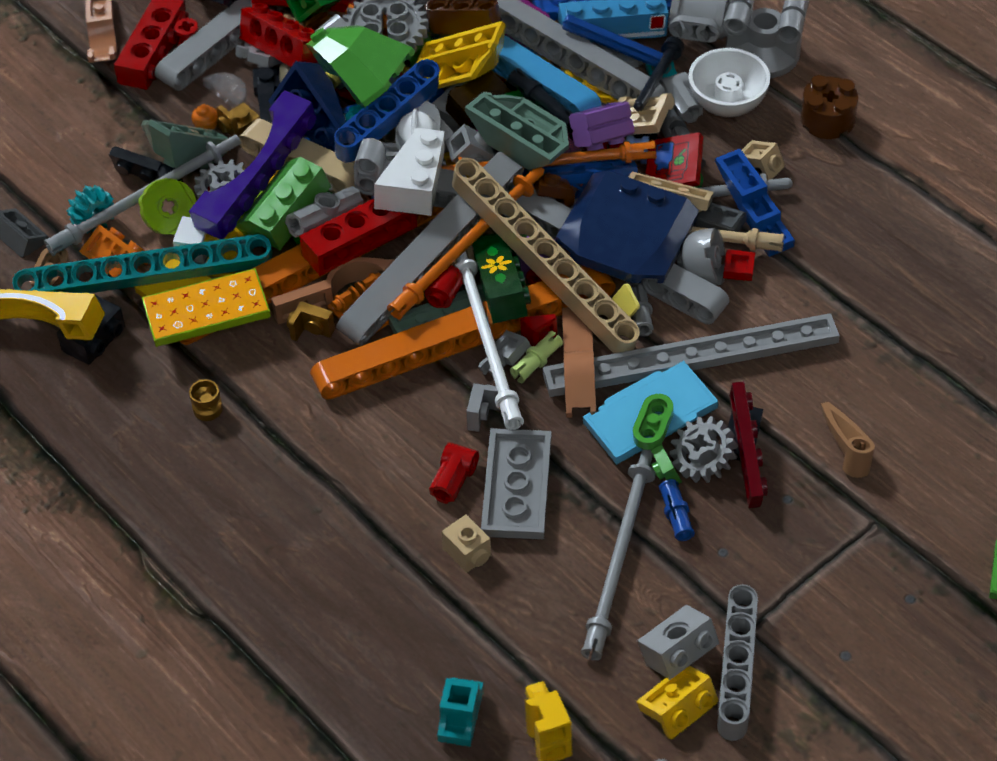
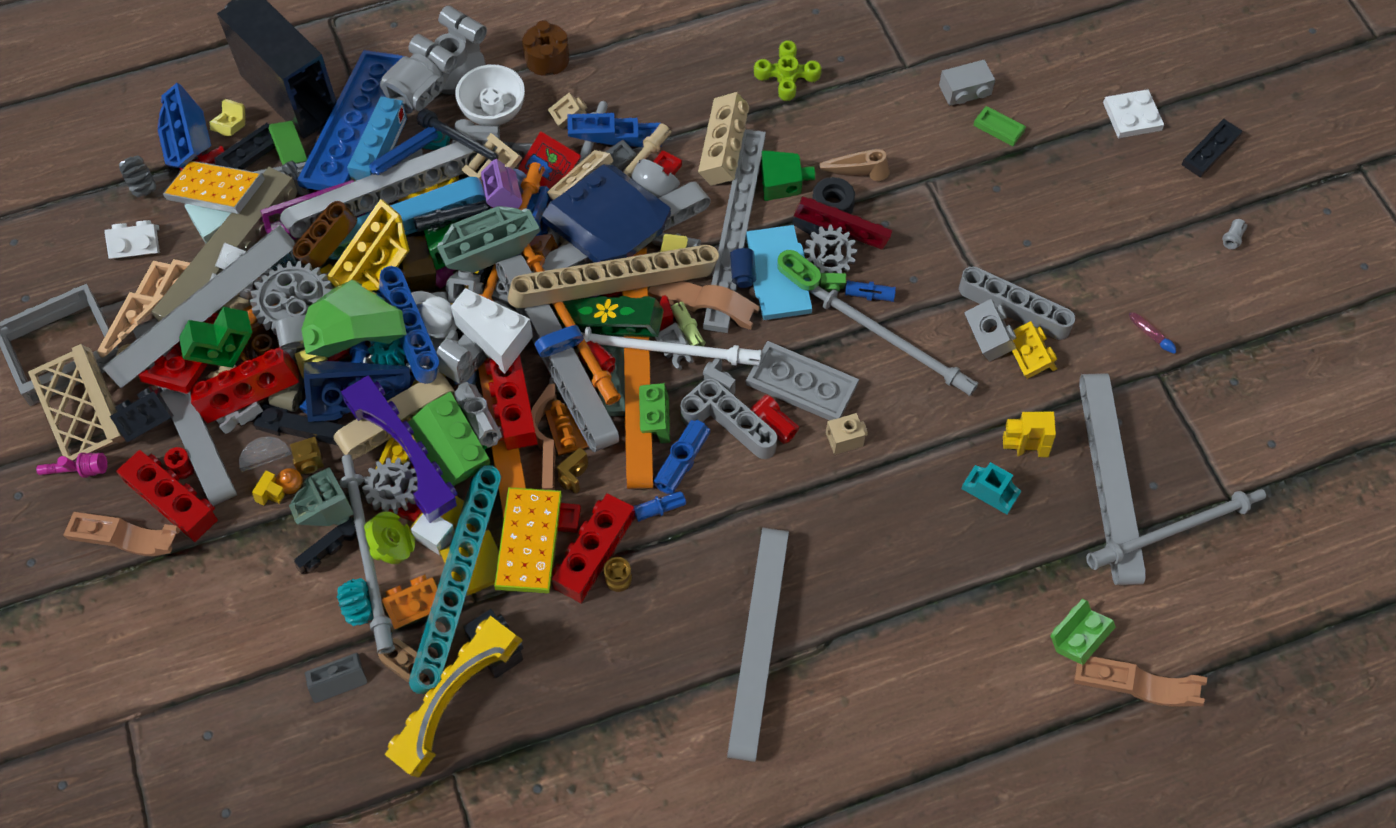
camera: 70 degrees left, 10 degrees up
(176, 547) = (758, 646): none -> light grey beam
(185, 103) = (268, 489): none -> yellow tile
(232, 369) = (578, 584): none -> red brick
(254, 336) = (569, 517): none -> red plate
(301, 407) = (659, 505): none -> blue axle
(367, 405) = (675, 468): none -> blue piece
(409, 363) = (655, 411): none -> bright green bracket
(430, 233) = (559, 341): none -> blue beam
(447, 409) = (758, 439): none -> light grey beam
(628, 371) = (743, 267): none -> dark blue brick
(782, 416) = (835, 188): none -> black tyre
(788, 372) = (783, 174): none -> green torso
(803, 299) = (723, 139): none -> tan brick
(945, 327) = (787, 70): none -> lime gear

